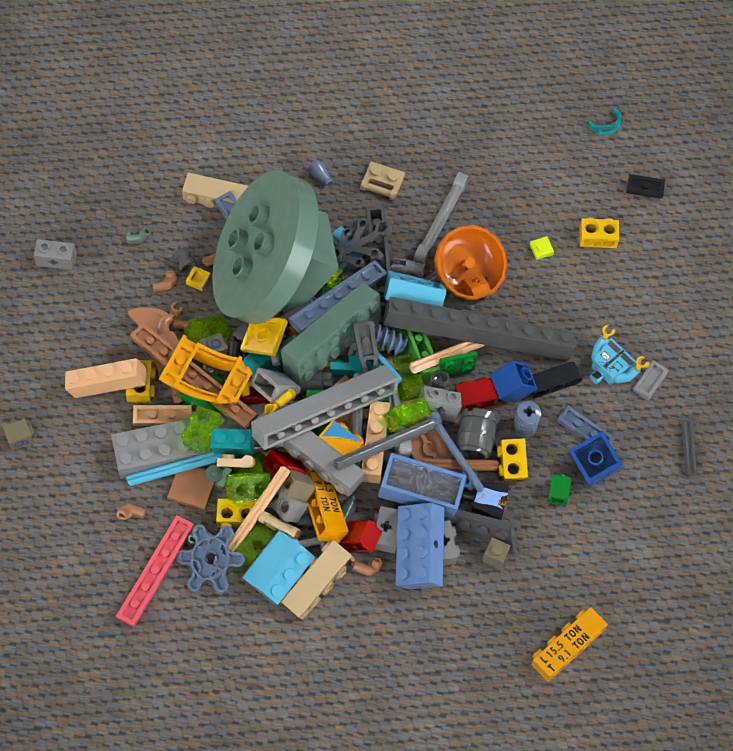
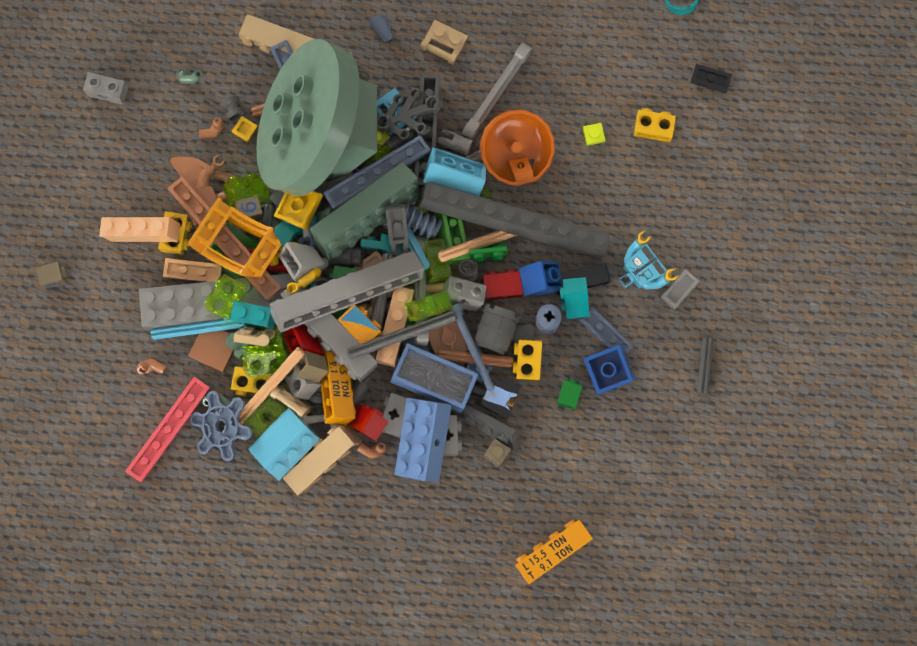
camera: 10 degrees right, 15 degrees up
(551, 395) = (576, 298): none -> teal brick

